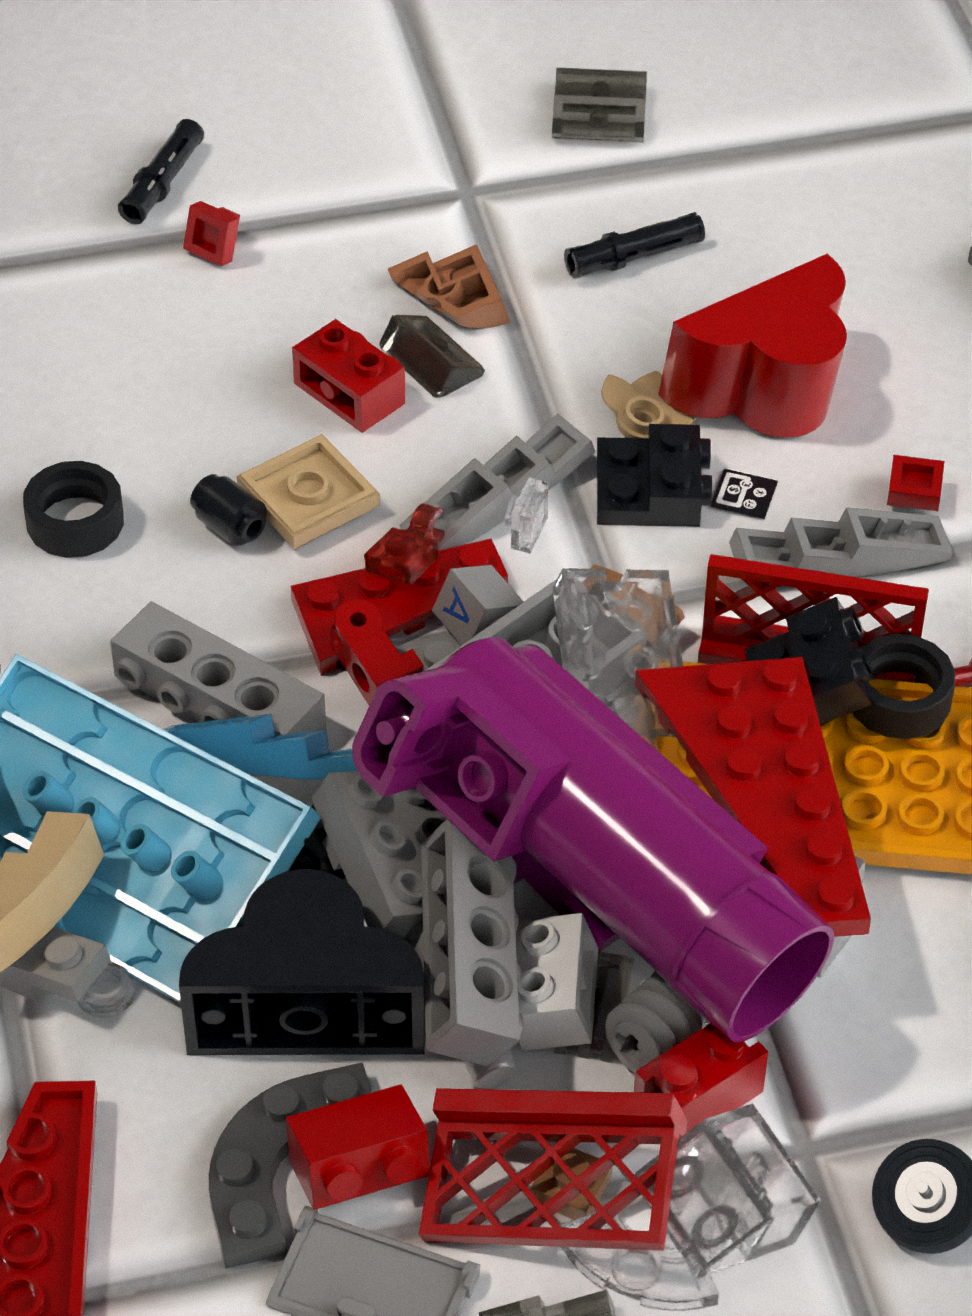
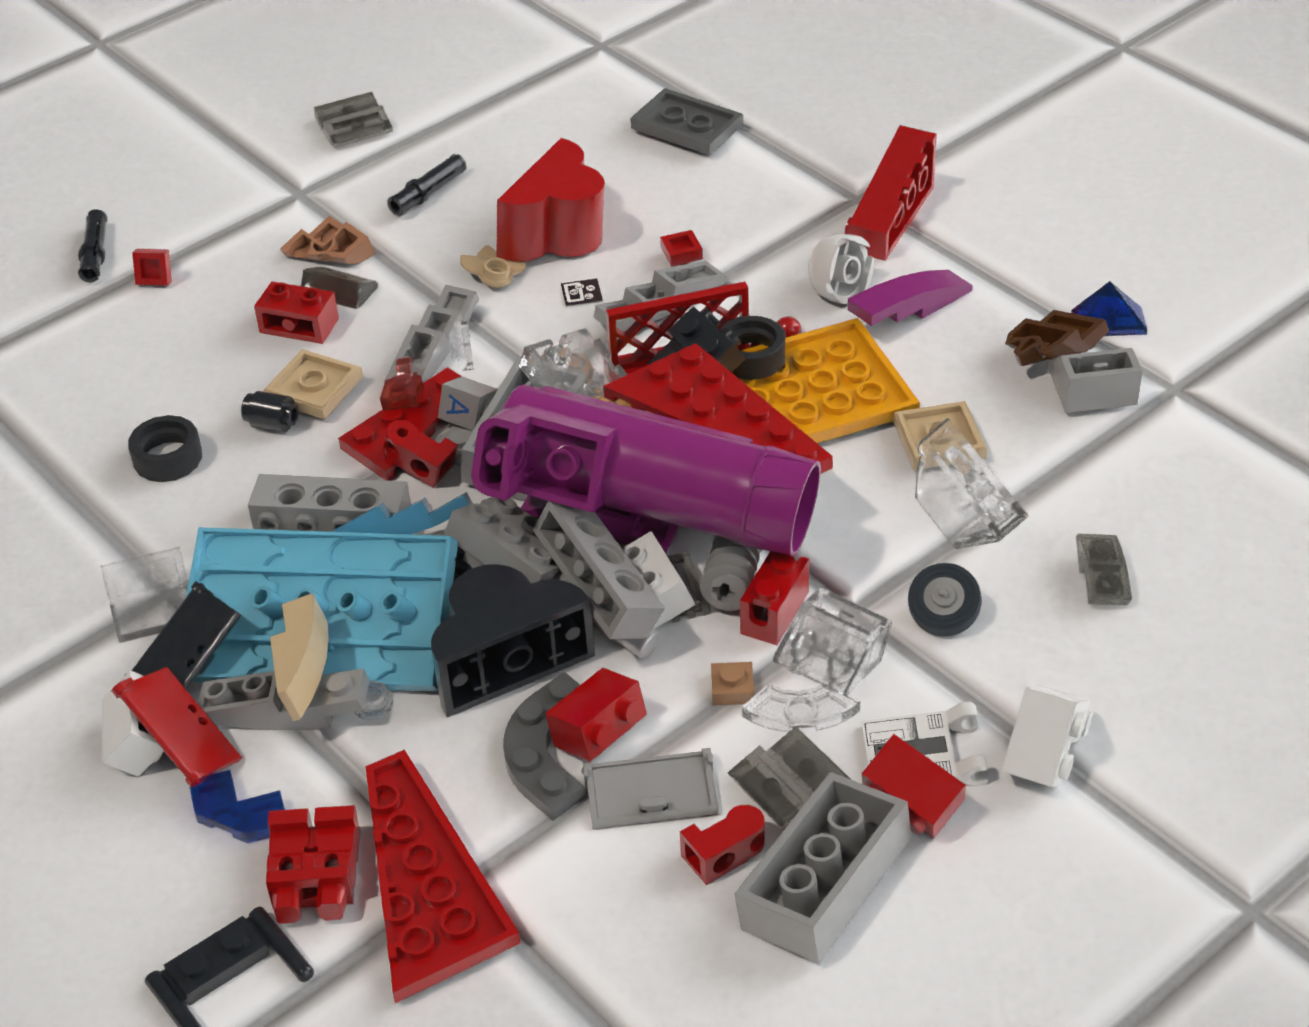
camera: 25 degrees left, 5 degrees down
(563, 1119) = (718, 642): red fence -> none
(654, 477) = (525, 300): black plate -> none

